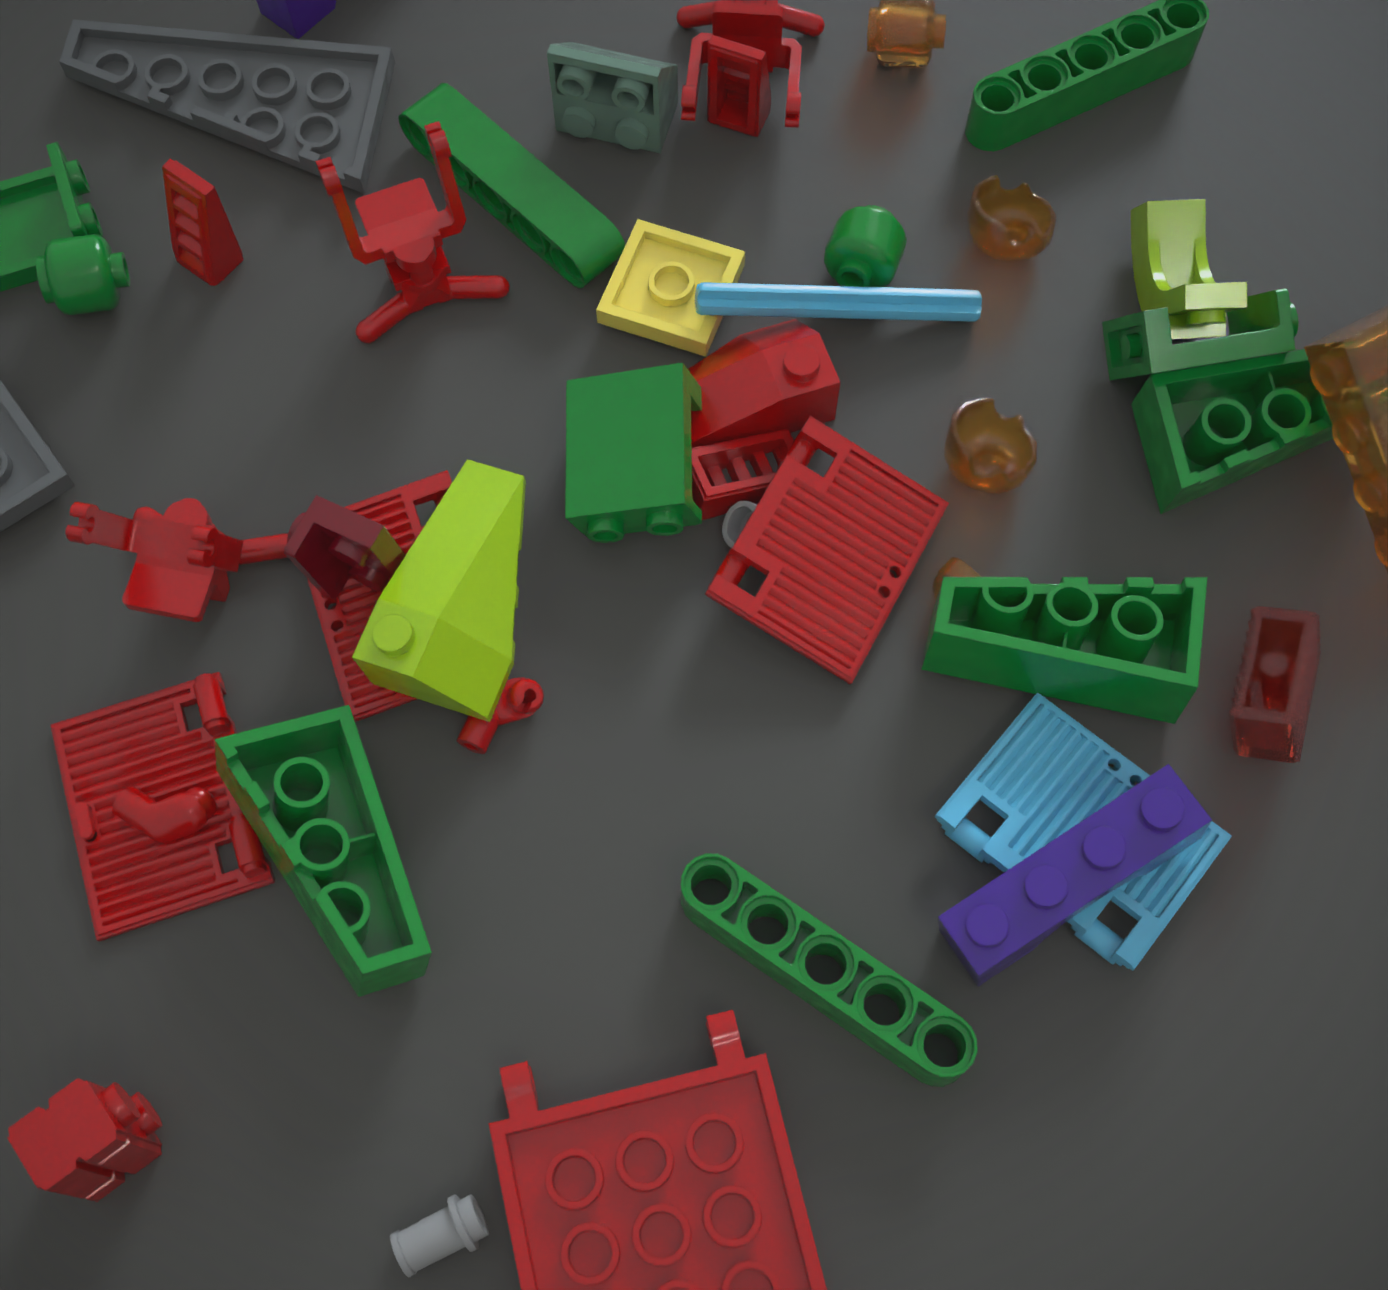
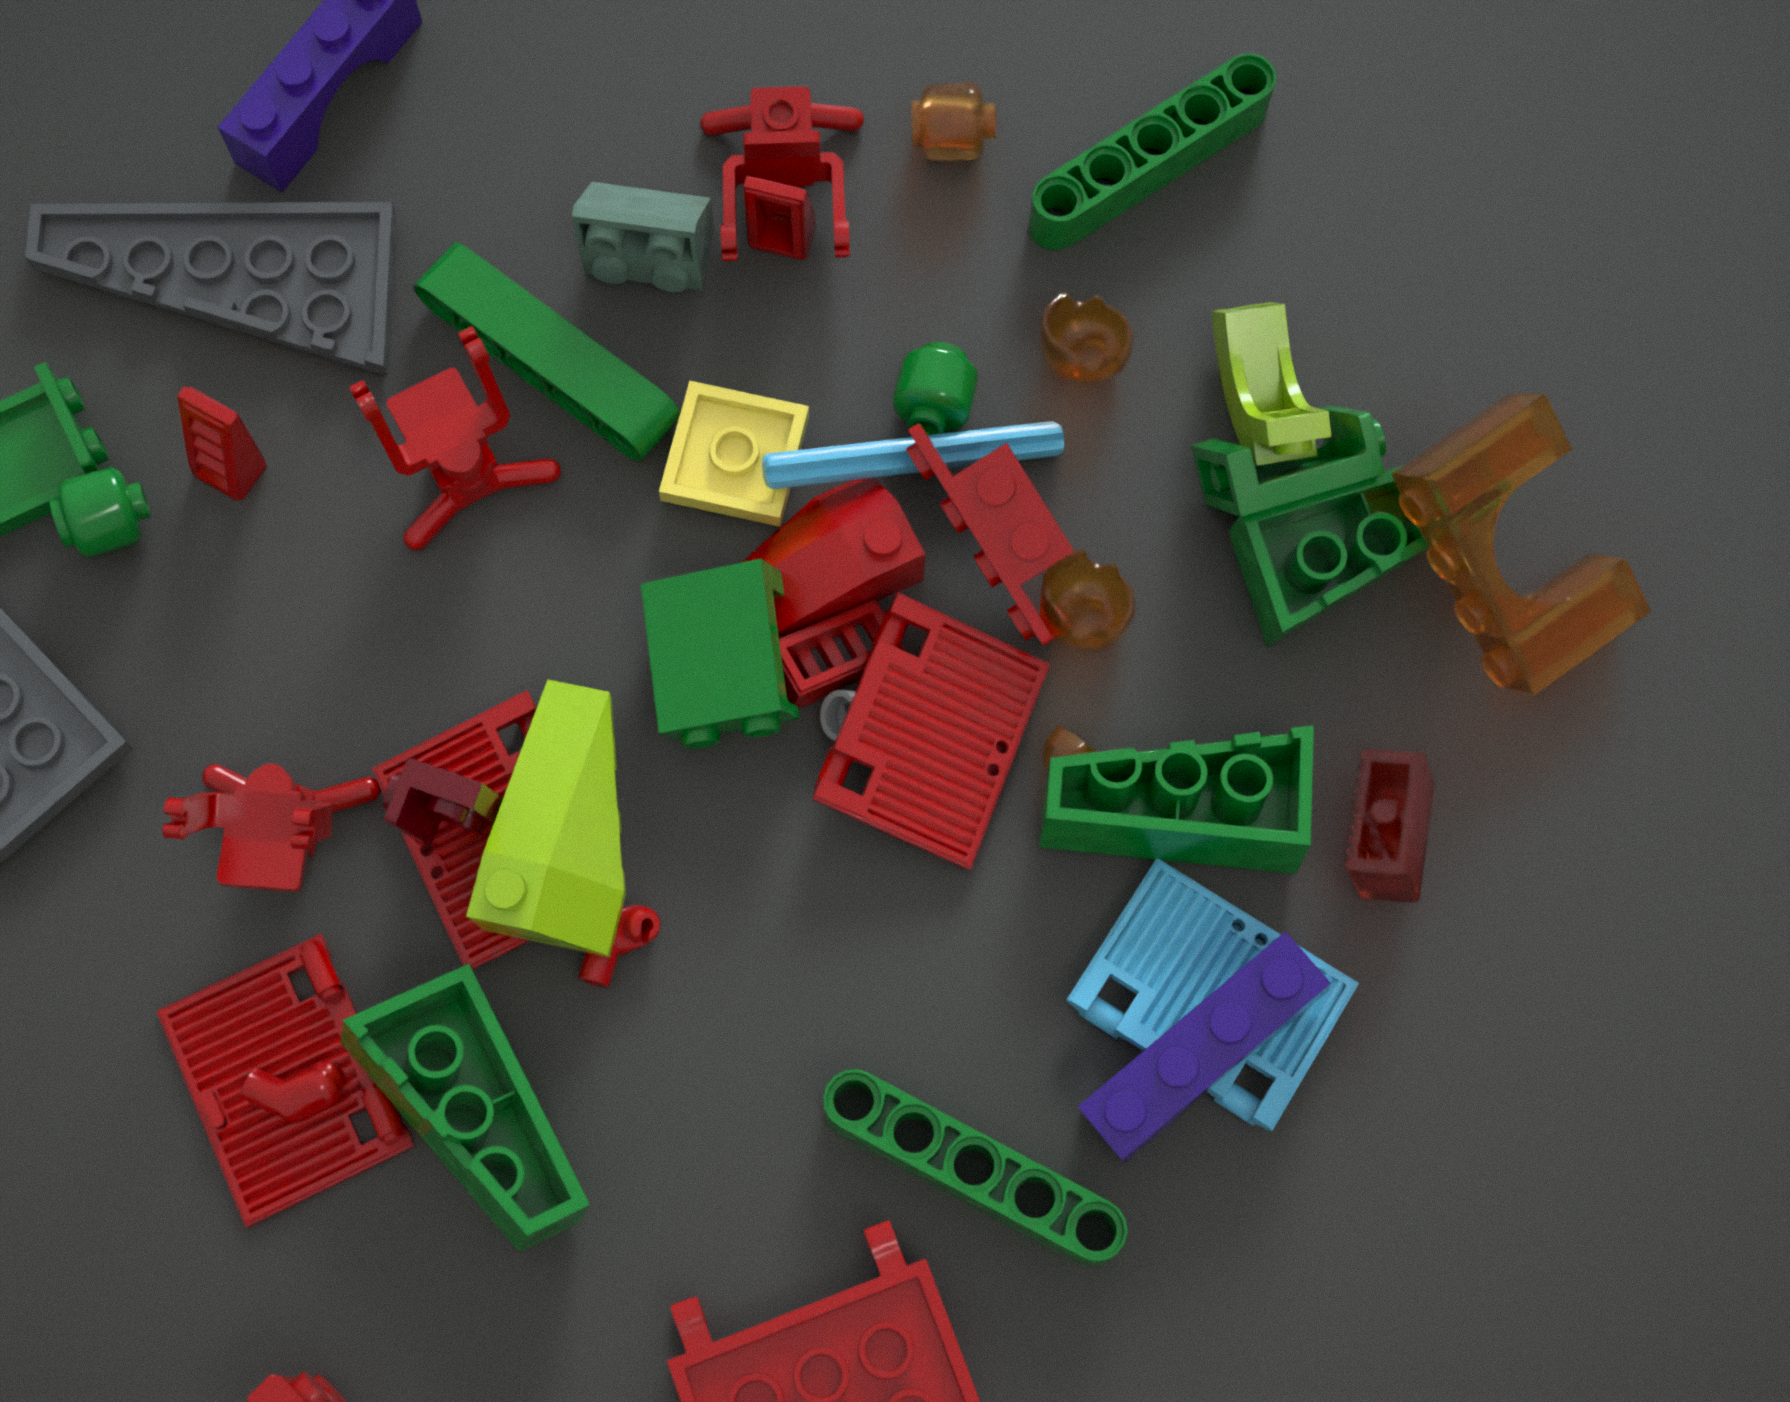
camera: 10 degrees left, 5 degrees up
(921, 359) = (1005, 518): none -> red bracket

